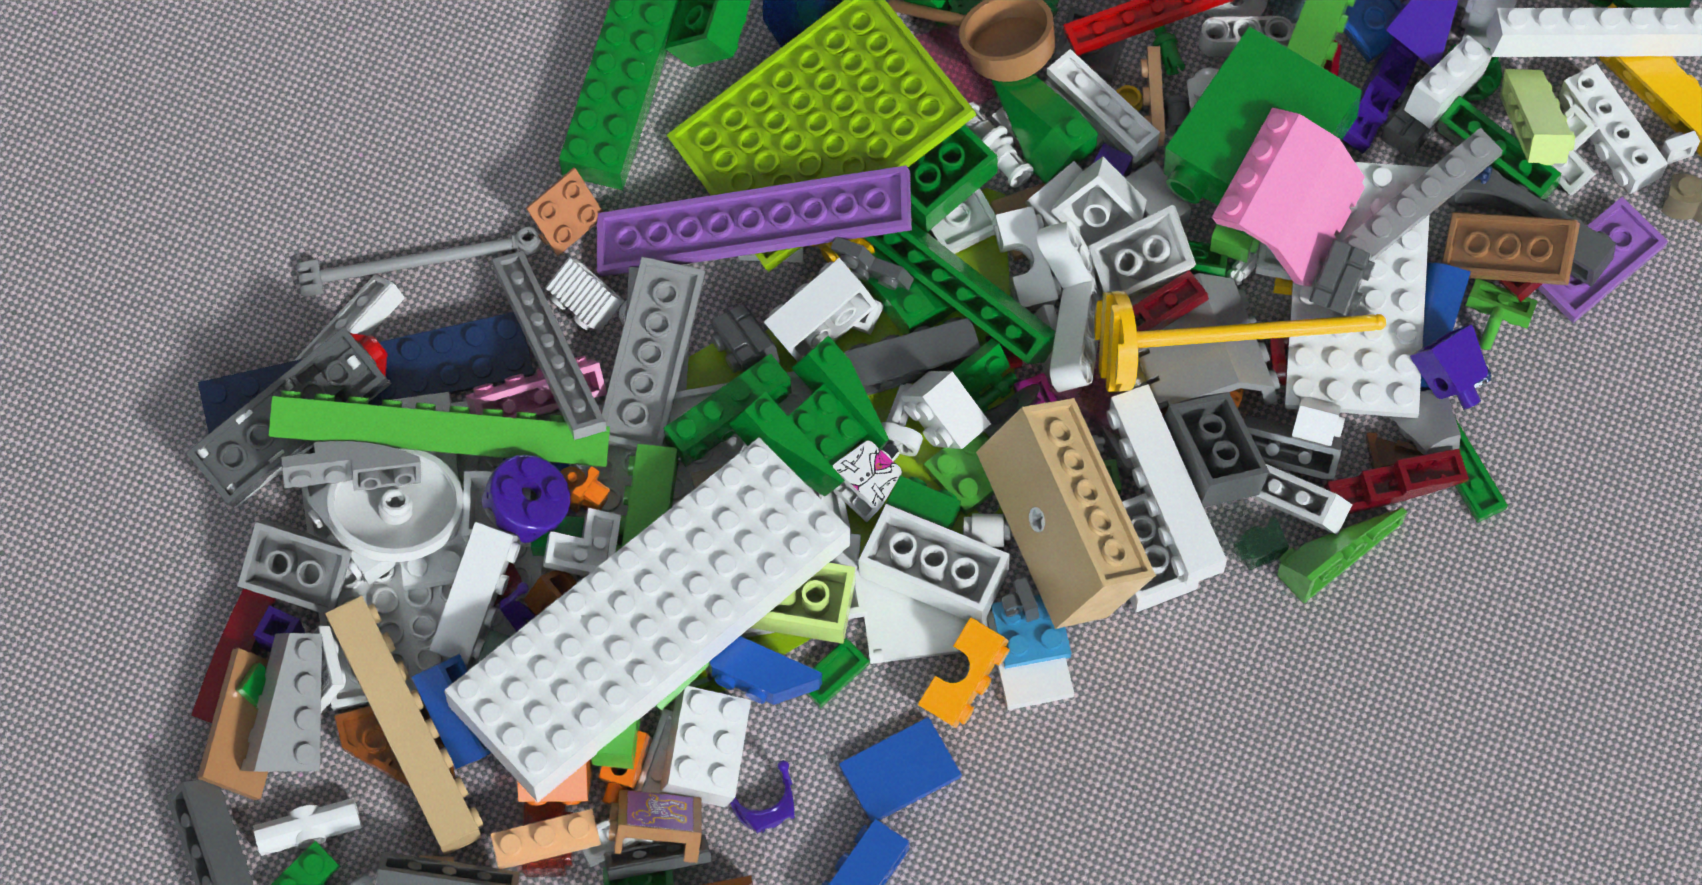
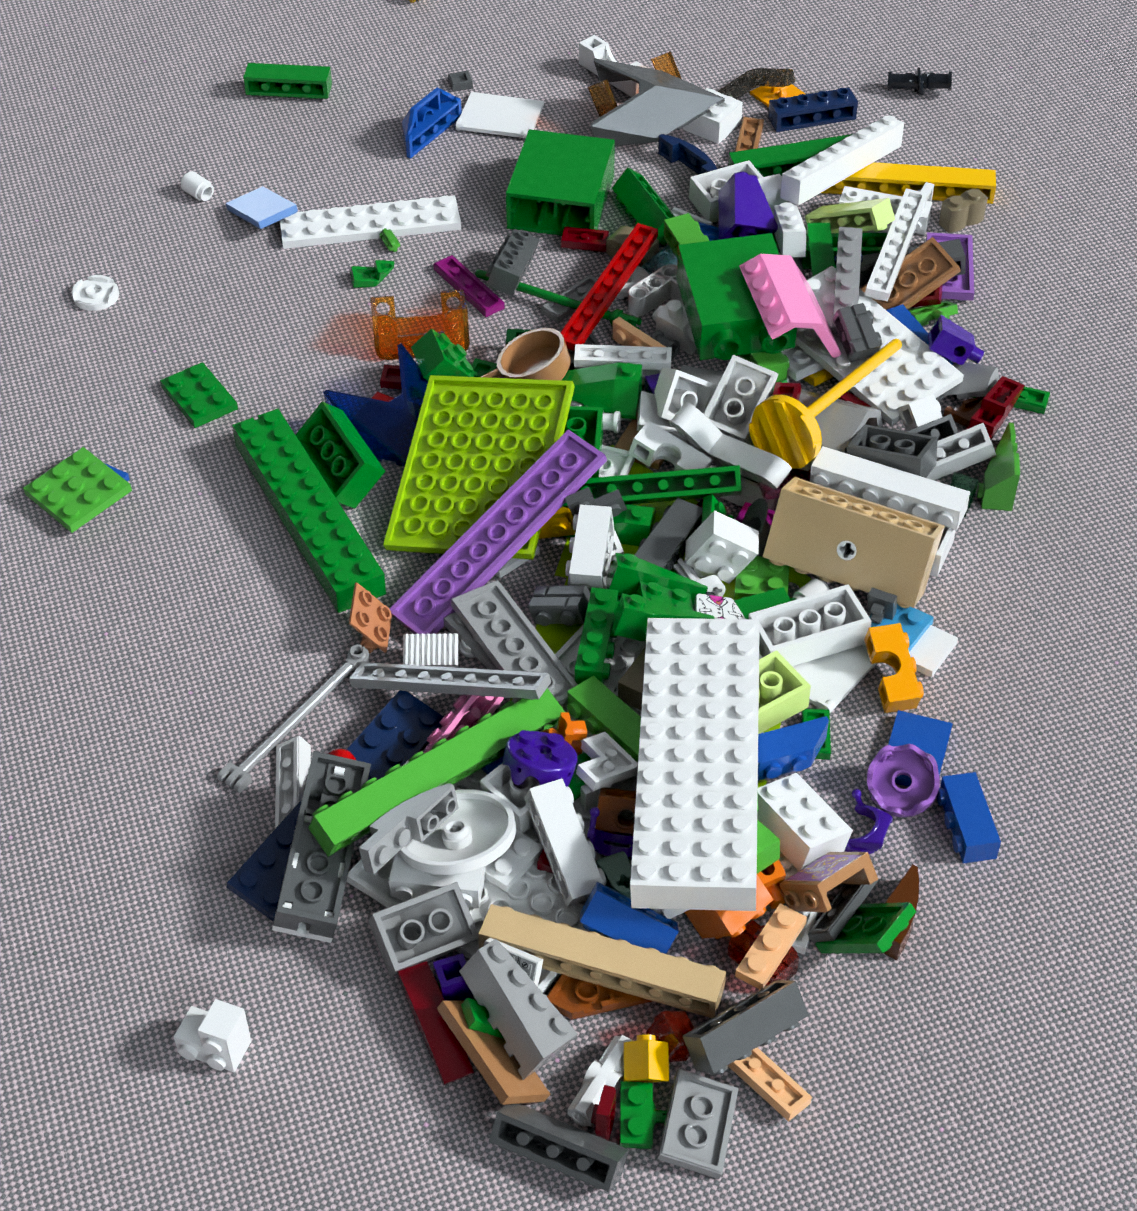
camera: 45 degrees left, 20 degrees down
(59, 517) = (214, 1035): none -> white brick
(266, 859) = (604, 1113): none -> dark red plate
(348, 843) = (646, 1060): none -> yellow brick
(395, 835) = (670, 1028): none -> clear red brick
(818, 785) = (908, 761): none -> medium lavender plate
(1459, 124) = (820, 247): none -> green tile
(1536, 194) = (896, 245): none -> white plate

